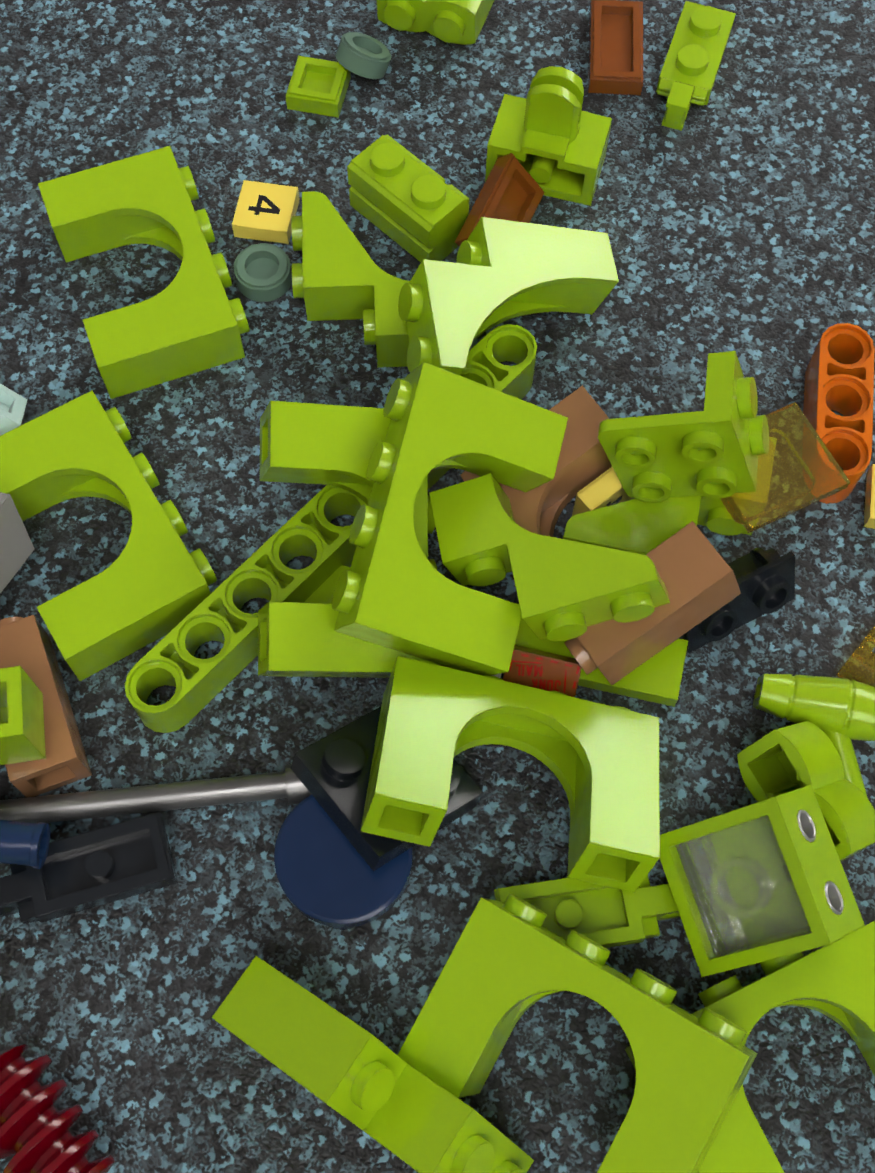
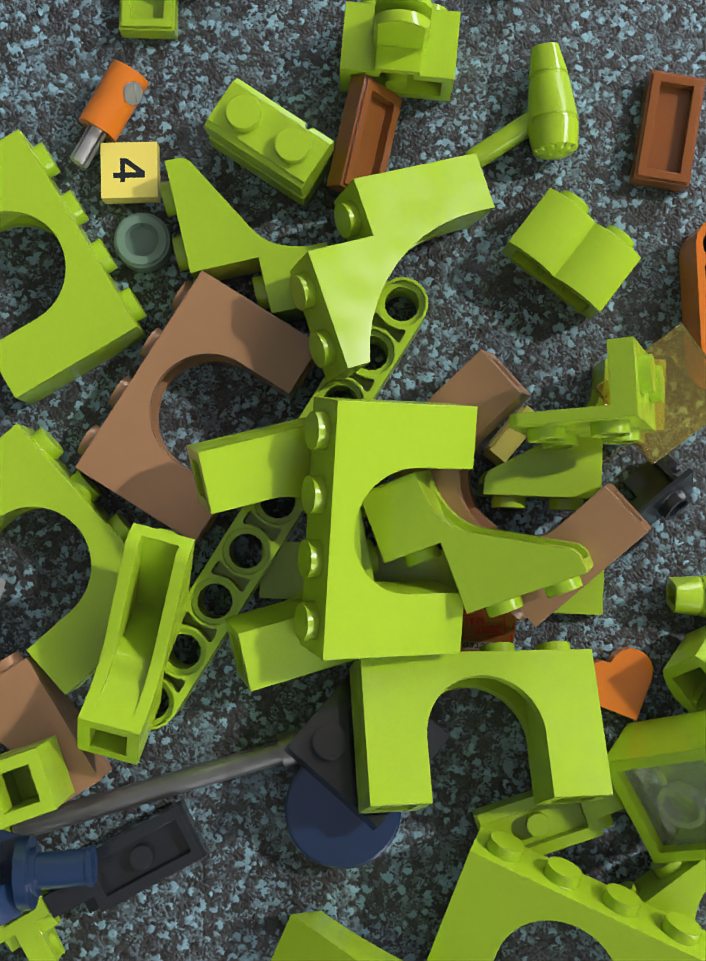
camera: 15 degrees left, 20 degrees up
(171, 581) = (137, 643): none -> lime arch
(259, 155) = (108, 110): none -> orange piece
(306, 349) = (207, 327): none -> medium nougat arch
(677, 332) = (572, 252): none -> lime brick
(688, 224) = (550, 115): none -> lime piece
(691, 778) = (624, 681): none -> orange tile
(804, 261) = (667, 131): none -> dark orange tile

